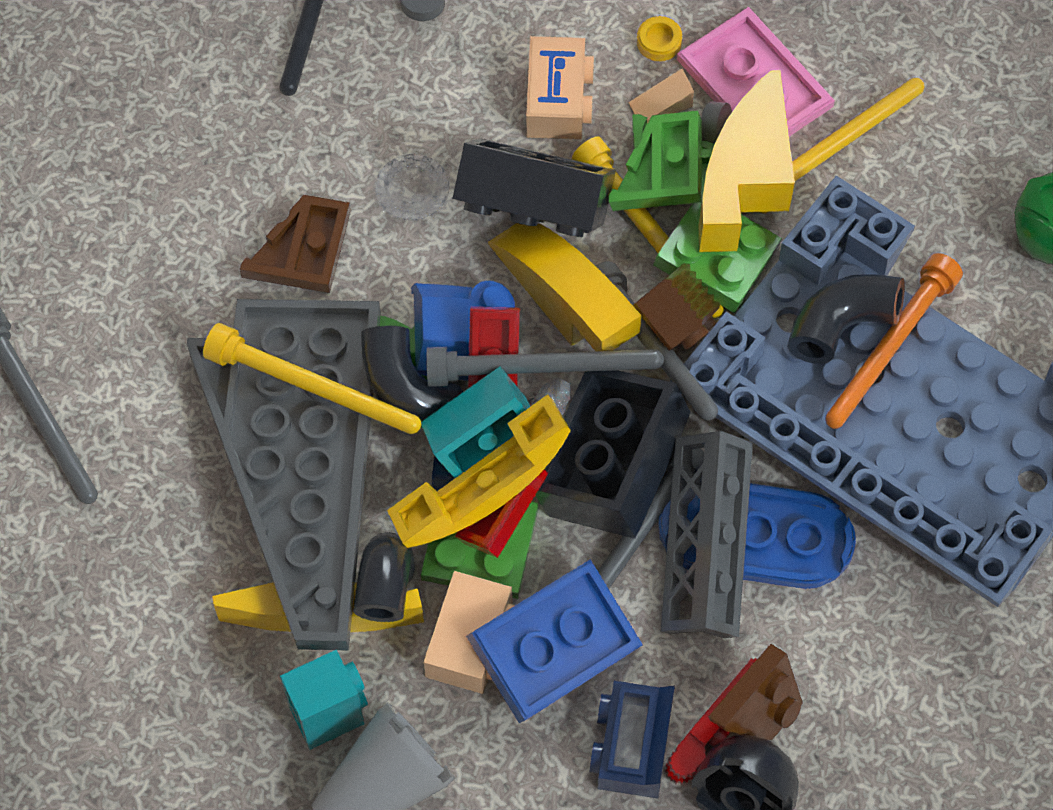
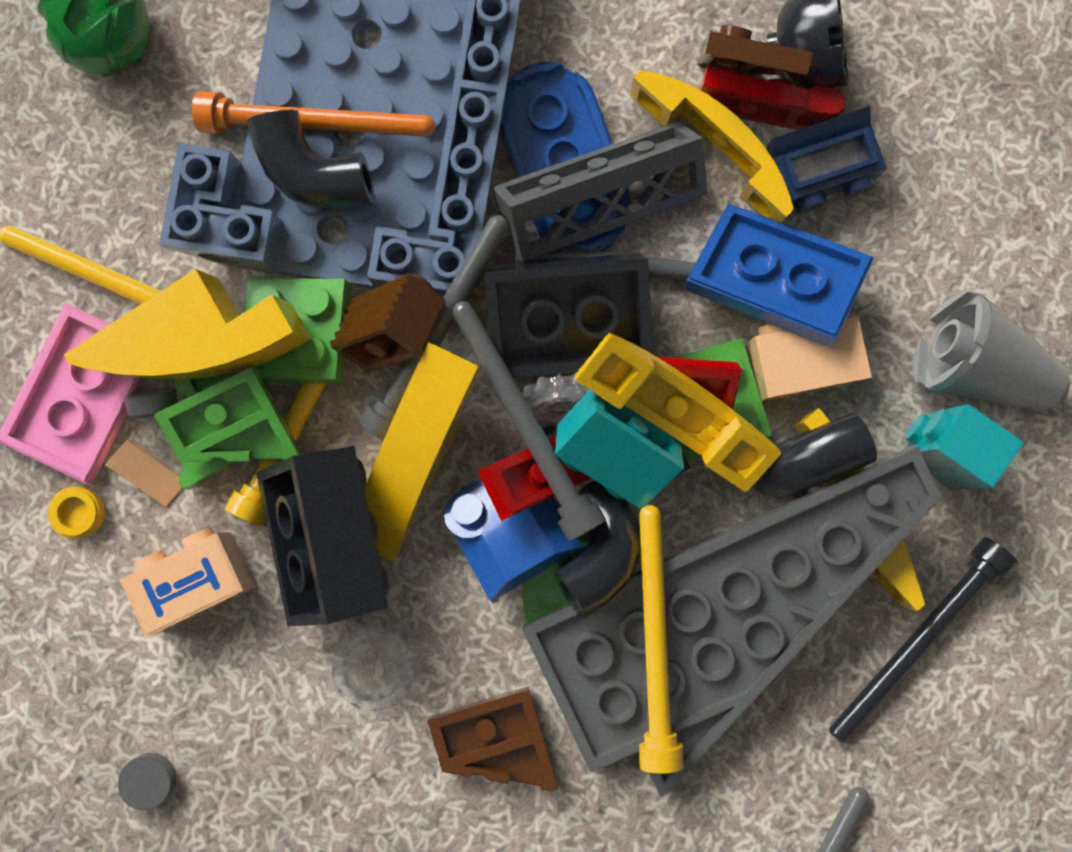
camera: 115 degrees left, 20 degrees up
(207, 687) = (987, 566): none -> black piece
(707, 667) = (669, 97): none -> yellow slope

